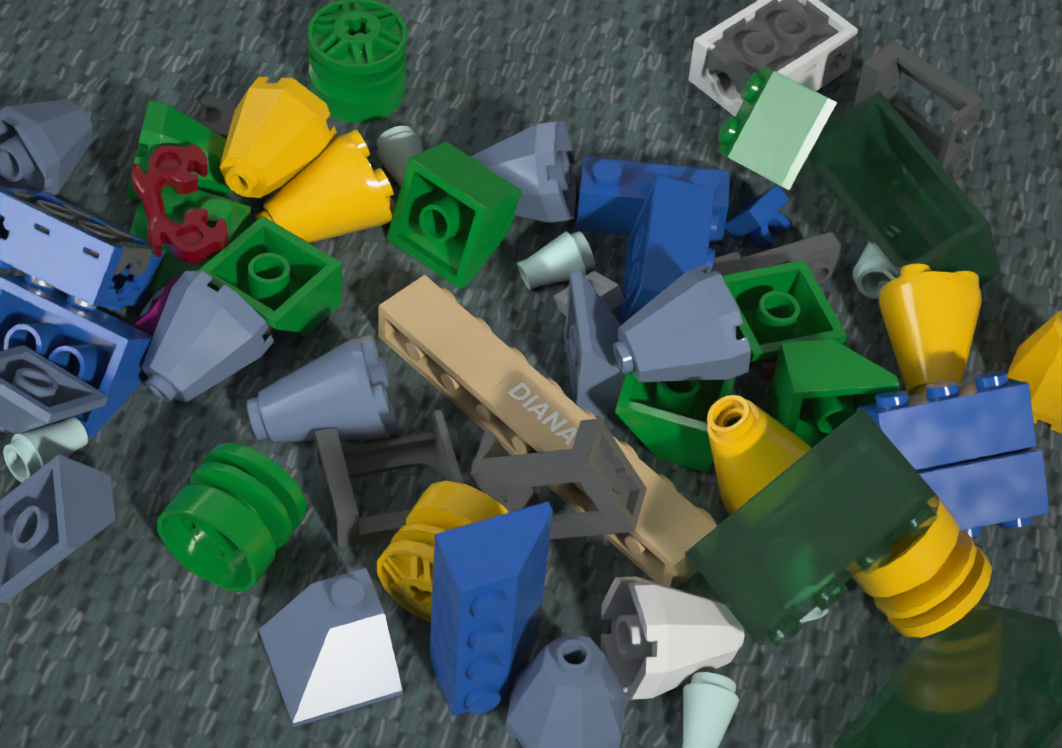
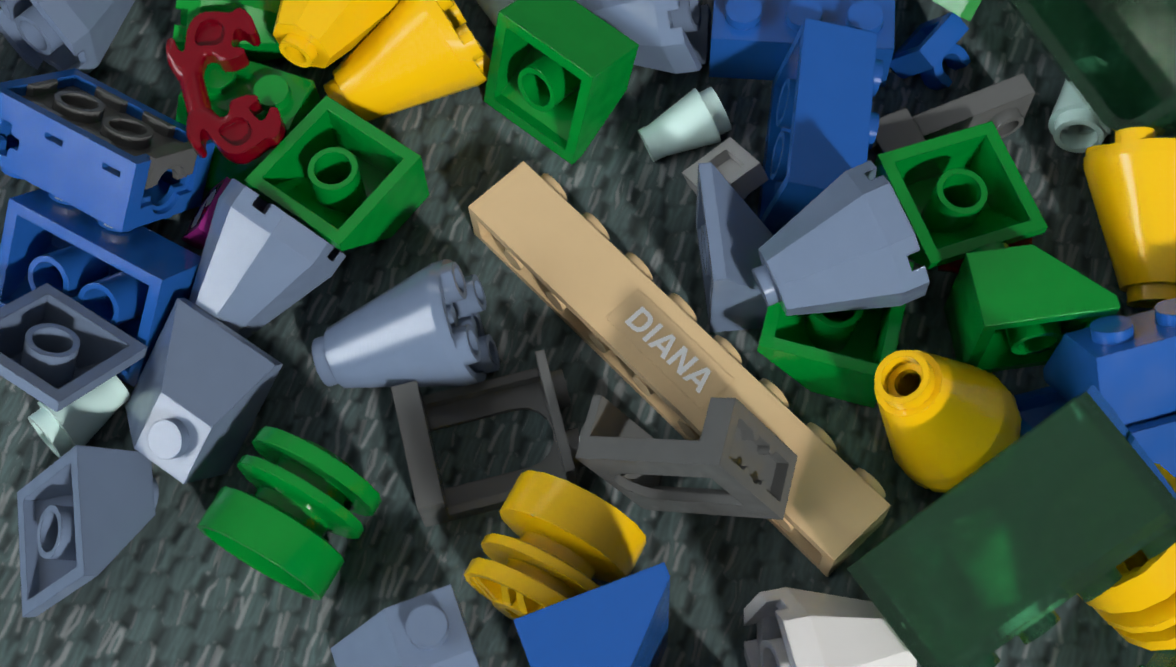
camera: 10 degrees right, 15 degrees up
(152, 432) = (198, 395): none -> sand blue slope

